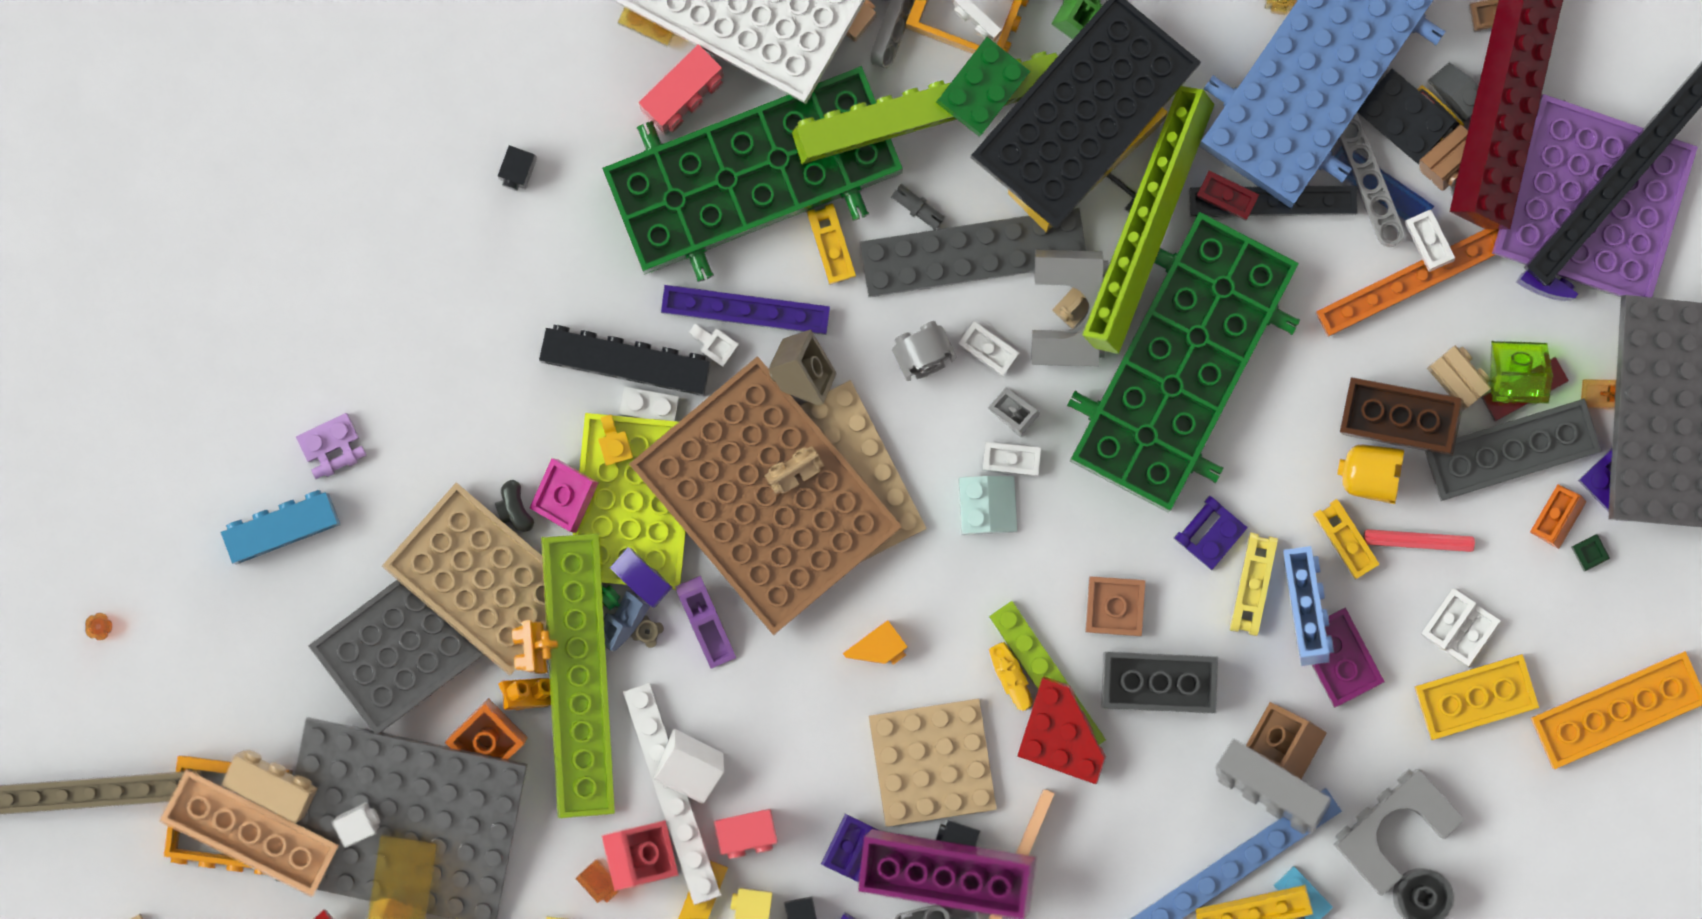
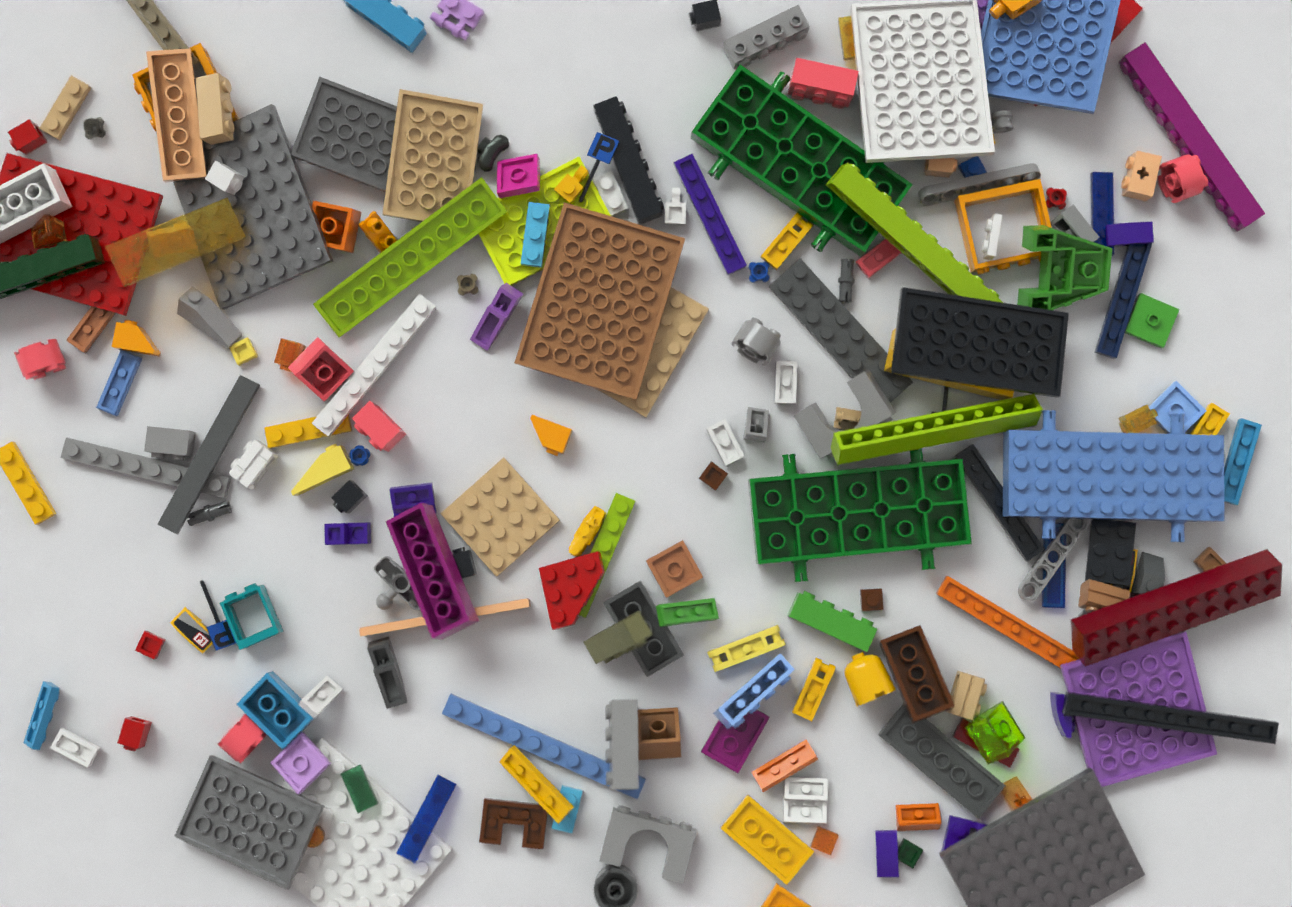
camera: 55 degrees right, 0 degrees up
(536, 647) = (409, 216): light orange hips -> none
(586, 116) = (766, 37): none -> light grey brick
(596, 382) = (602, 150): none -> piece
(610, 597) = (473, 246): green plate -> none
(625, 621) = (460, 265): sand blue slope -> none
(641, 577) = (497, 256): dark purple slope -> none
(642, 519) = (535, 234): none -> medium azure plate
(690, 766) = (398, 364): white slope -> none
(756, 870) = (354, 455): none -> blue plate
(782, 475) = (635, 309): tan hinge -> none
(802, 368) = (696, 272): dark tan slope -> none
(844, 289) = (754, 276): none -> blue plate
(915, 157) = (877, 258): none -> coral tile
(983, 86) = (951, 268): green plate -> none
(987, 504) = (686, 445): light aqua slope -> none
(1040, 496) = (713, 476): none -> reddish brown plate
(1154, 716) = (618, 639): none -> olive brick
(1173, 623) = (687, 612): none -> bright green tile
(1217, 539) = (758, 606): dark purple plate -> none
(1227, 195) = (984, 470): dark red plate -> none
(1286, 470) = (832, 622): none -> bright green brick
(1288, 411) = (871, 599): none -> reddish brown plate
(1408, 625) = (784, 765): none -> orange plate
(1419, 540) = (843, 737): coral axle -> none
(1430, 240) = (1041, 619): white plate -> none
(1518, 635) = (824, 840): none -> clear orange tile
(1575, 576) = (887, 853): none -> dark purple slope

